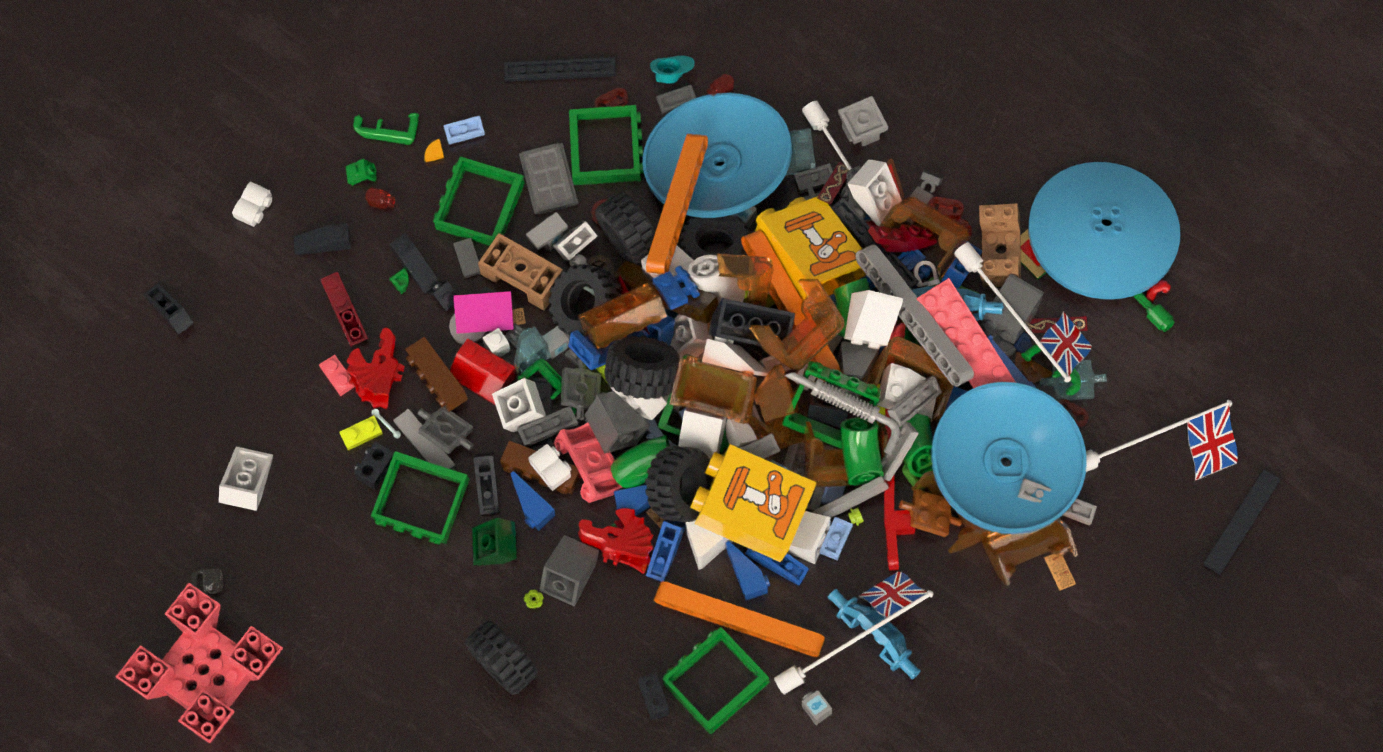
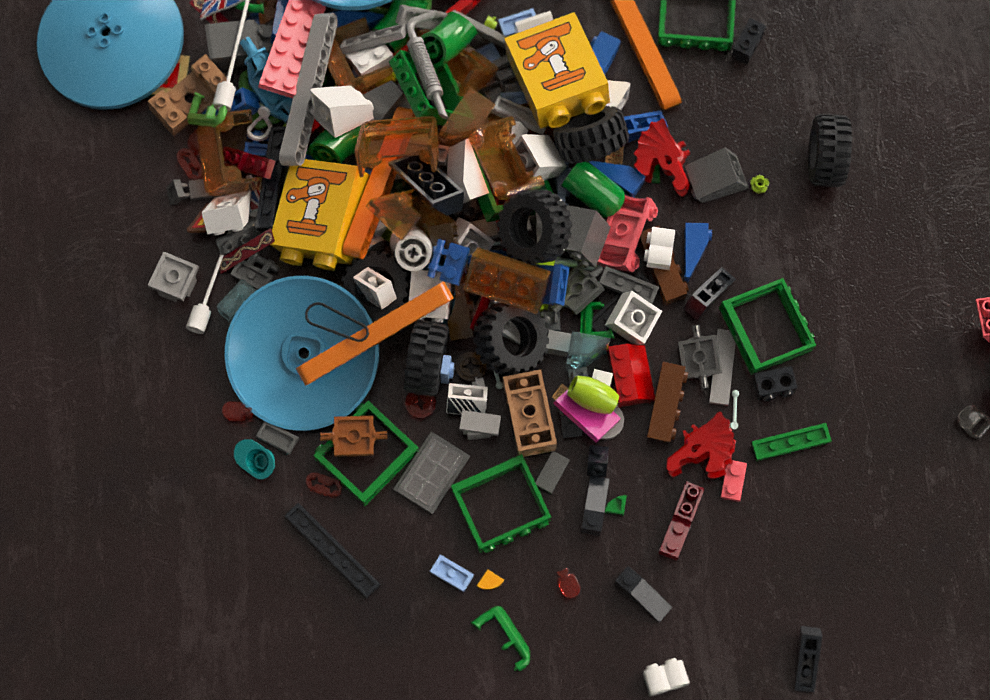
camera: 140 degrees left, 5 degrees up
(245, 478) = (874, 467): white slope -> none
(322, 438) = (791, 442): none -> green plate
(361, 171) = (560, 619): green bracket -> none
(361, 432) = (759, 420): neon yellow plate -> none
(488, 319) = (593, 394): none -> lime piece
(494, 542) = (748, 246): dark green slope -> none
(610, 244) = (447, 369): none -> light blue plate
(621, 138) = (353, 436): none -> dark orange plate
(711, 231) = (374, 287): none -> white brick
(713, 190) = (332, 331): none -> black piece
(966, 233) = (207, 119): none -> bright green piece

